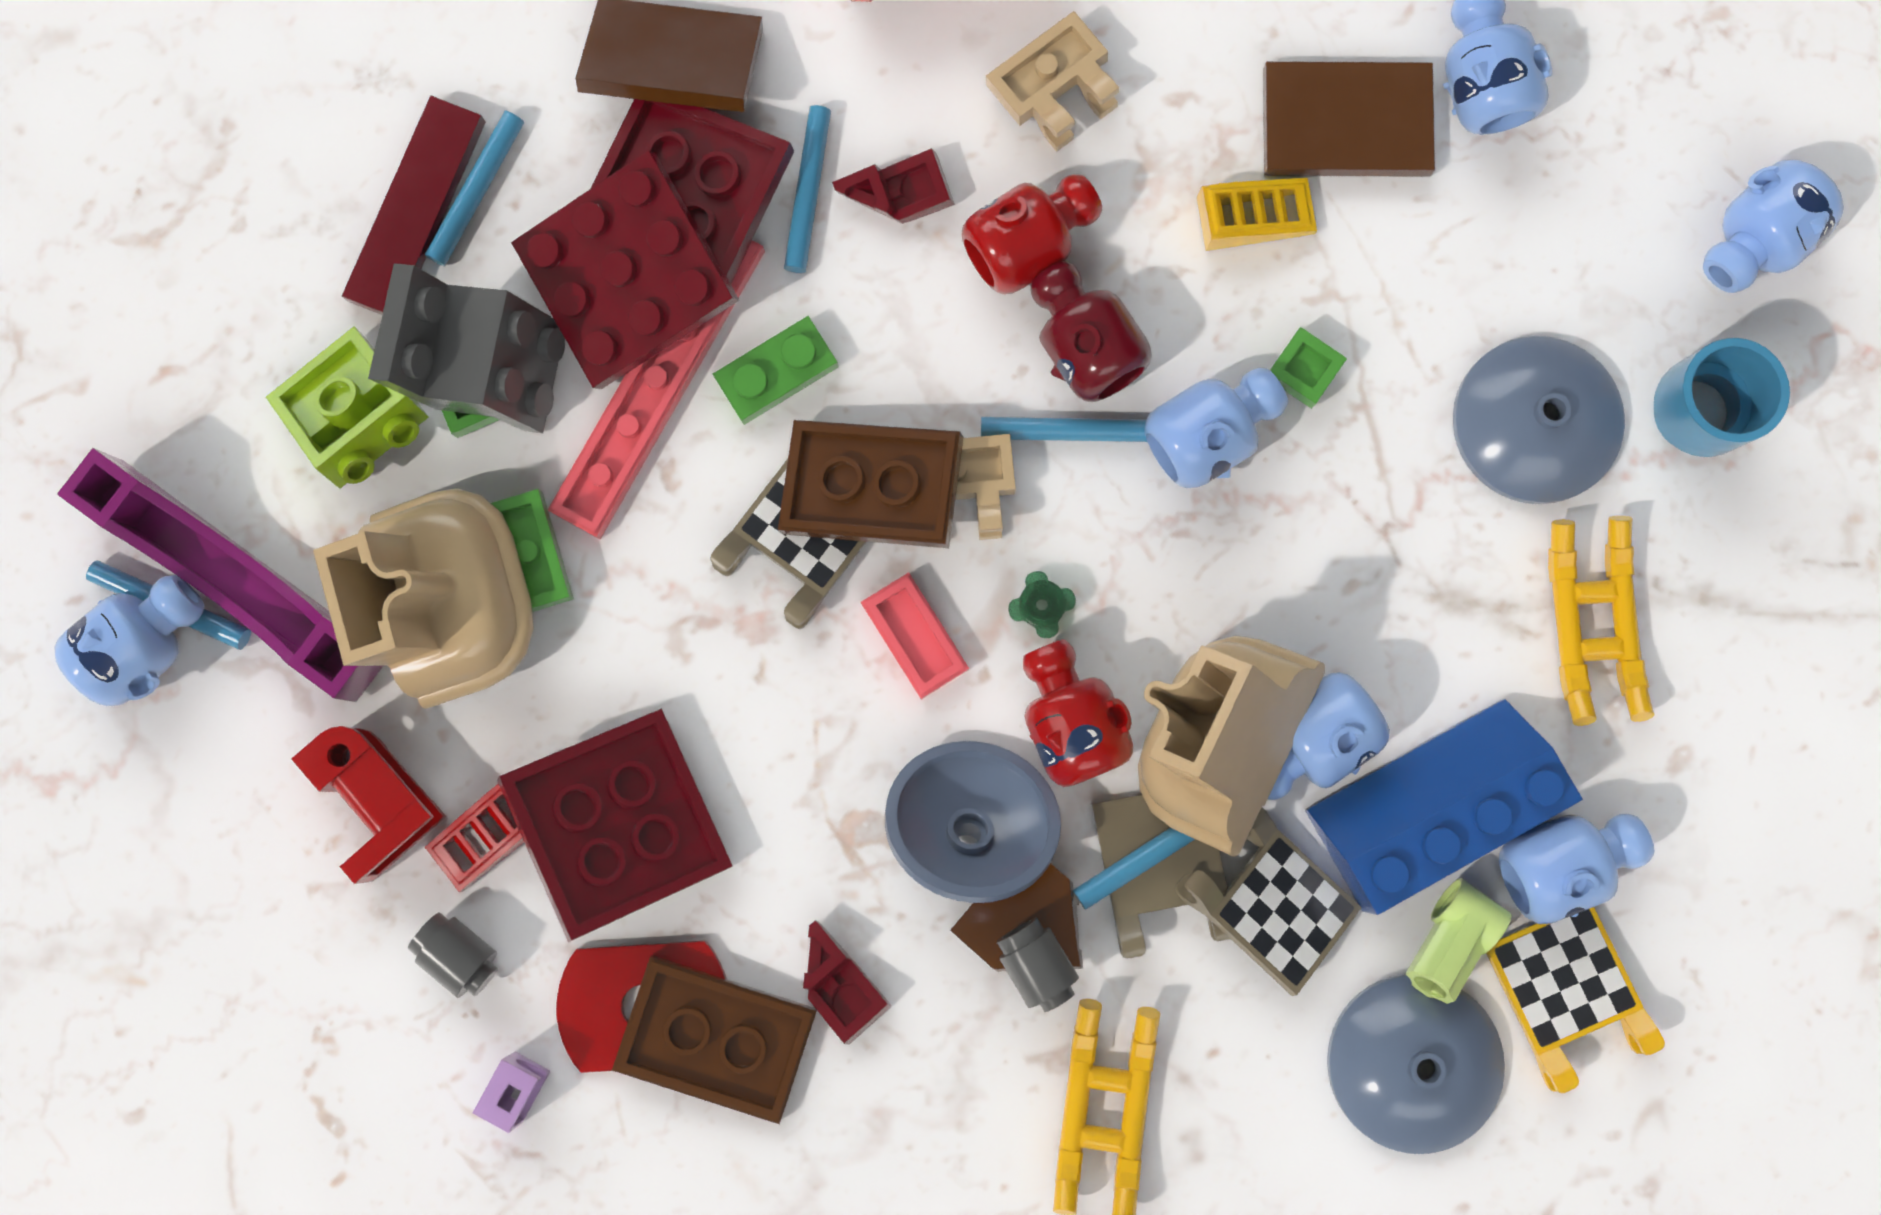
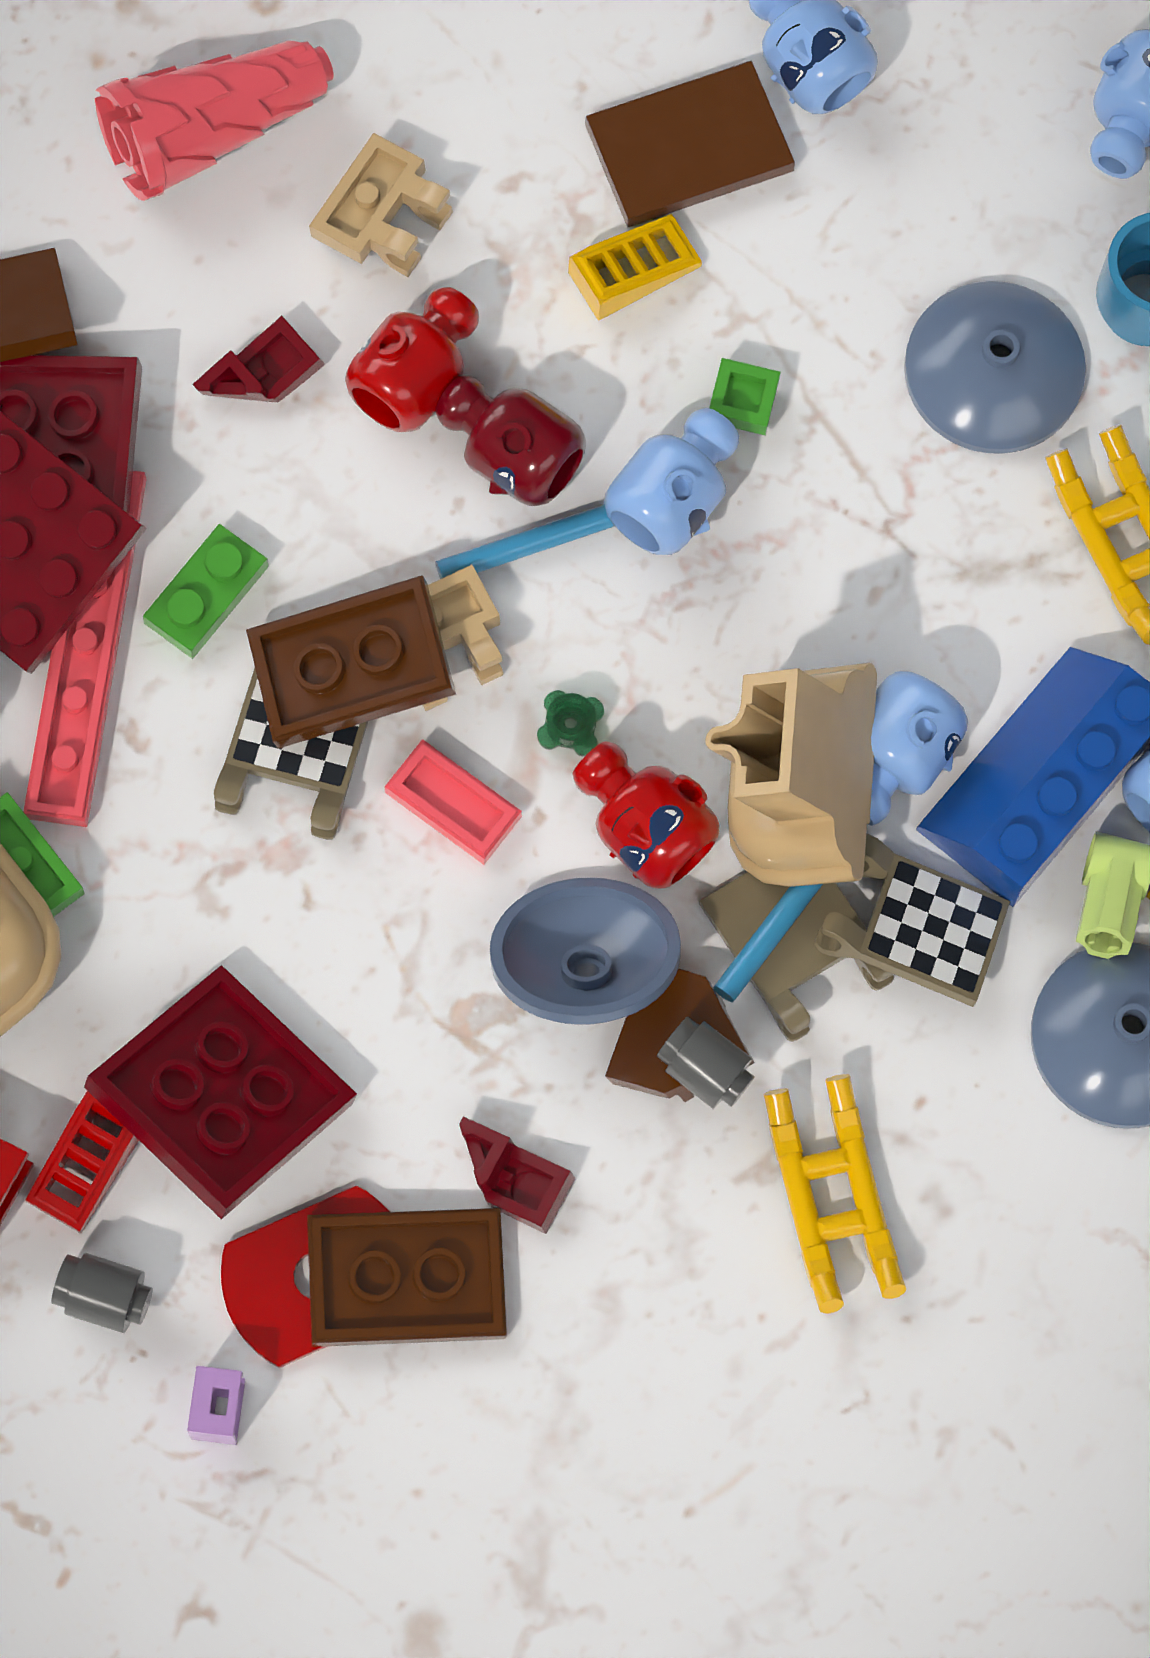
camera: 30 degrees left, 10 degrees down
(807, 189) = (168, 401): dark azure bar -> none

